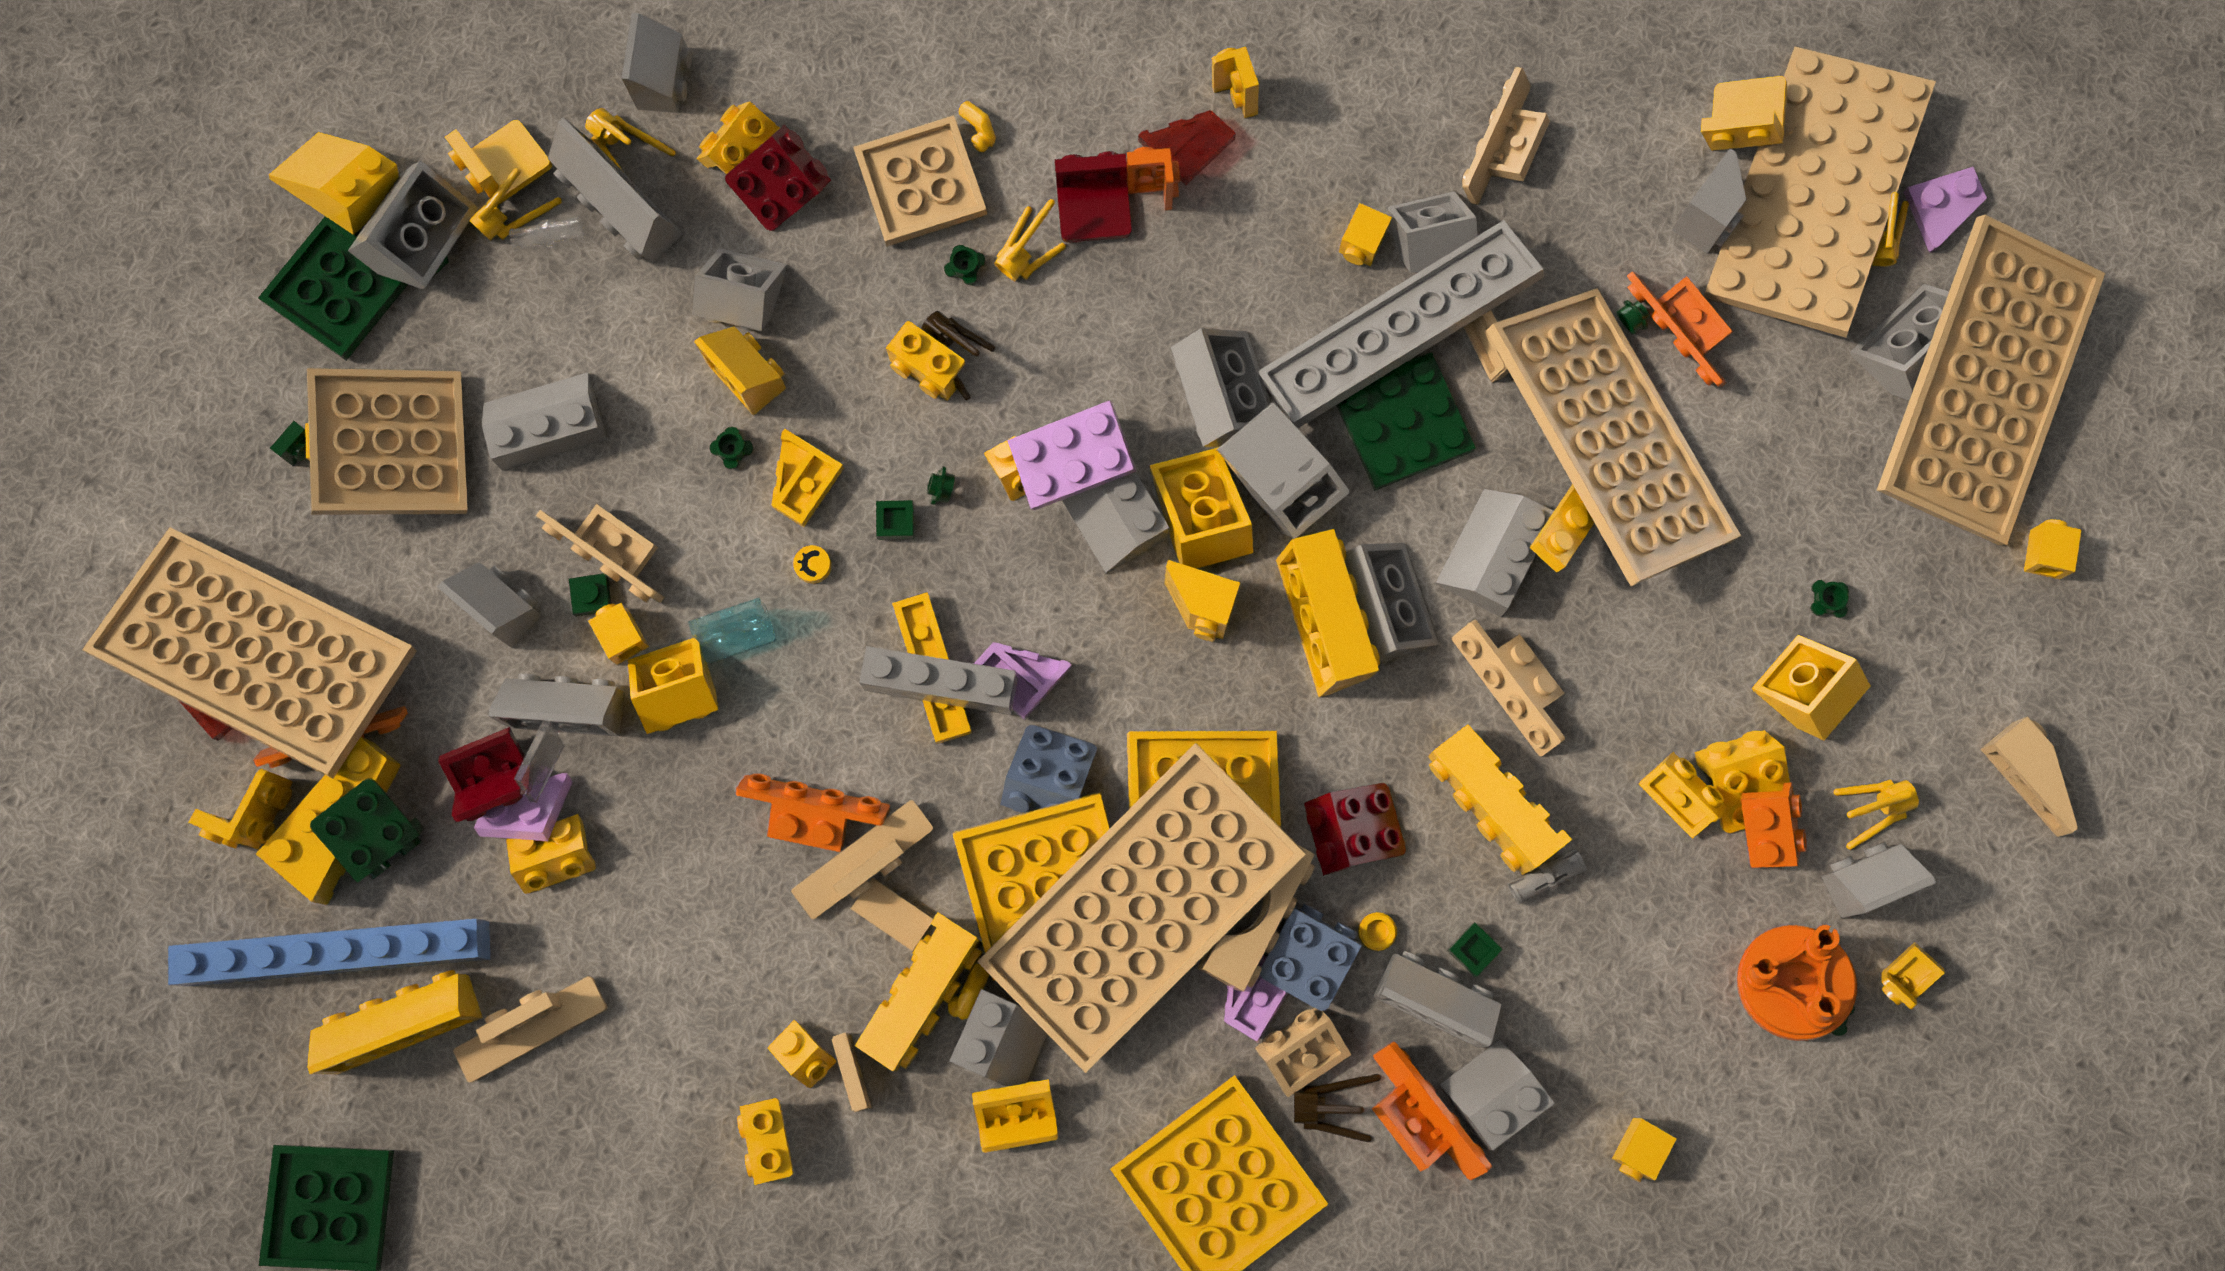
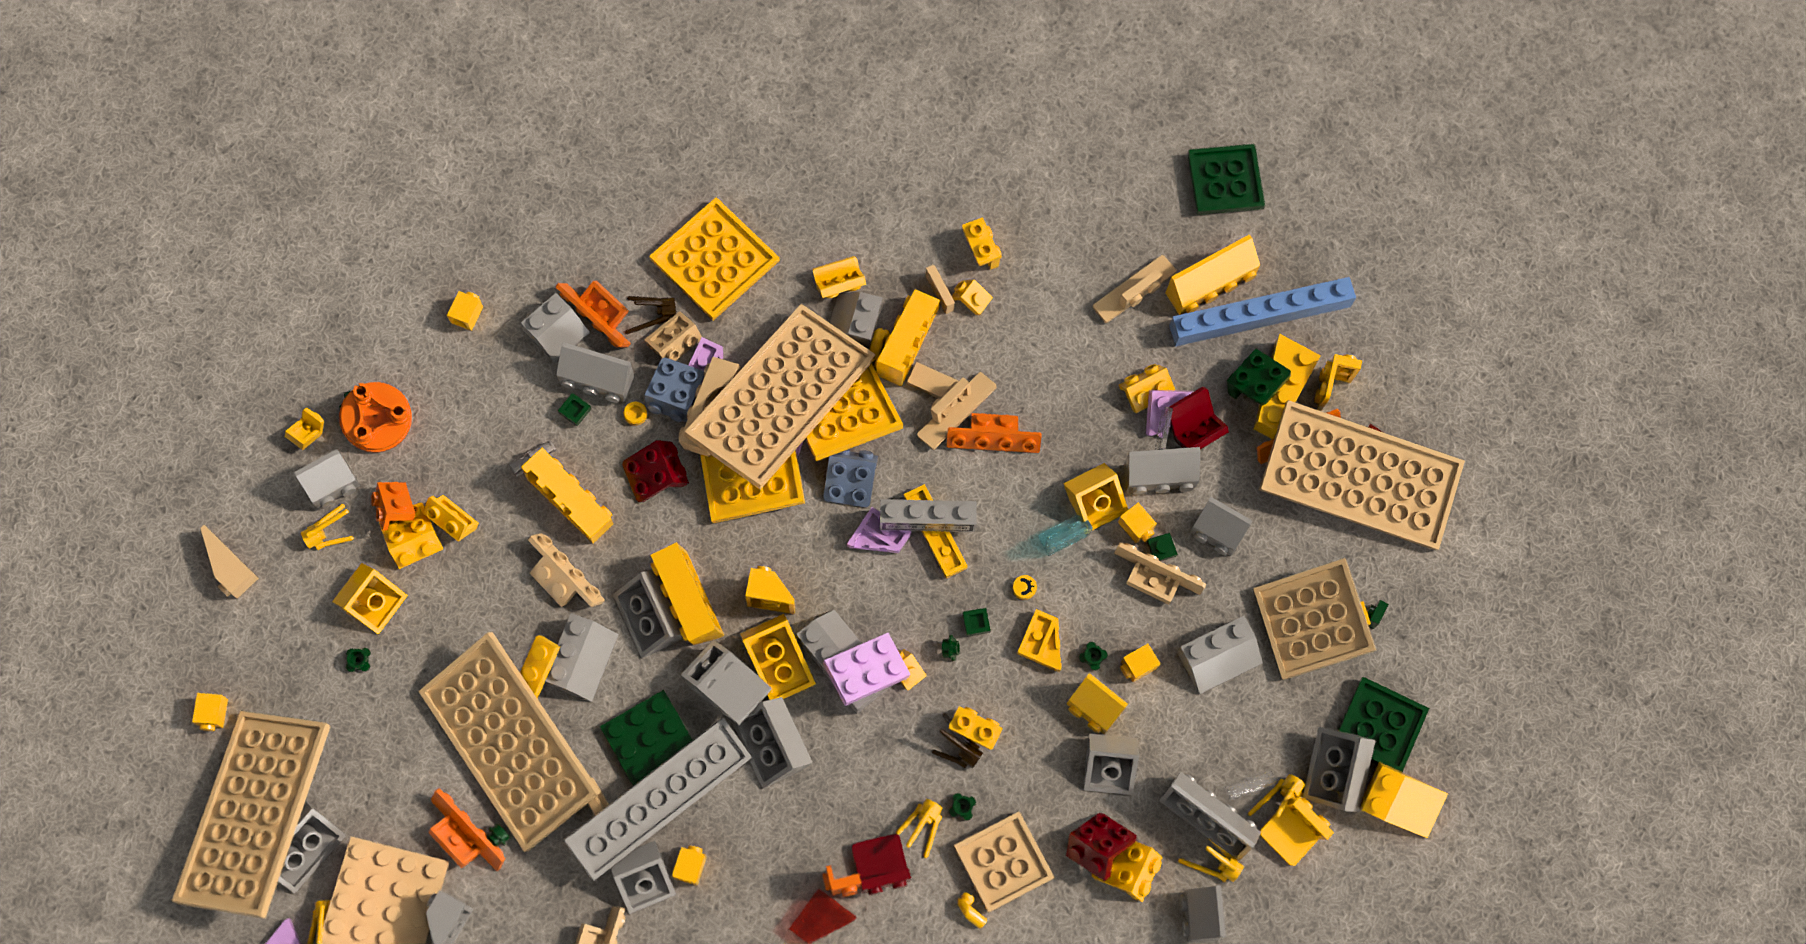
camera: 165 degrees right, 5 degrees down
(664, 422) = (1139, 663): none -> yellow brick

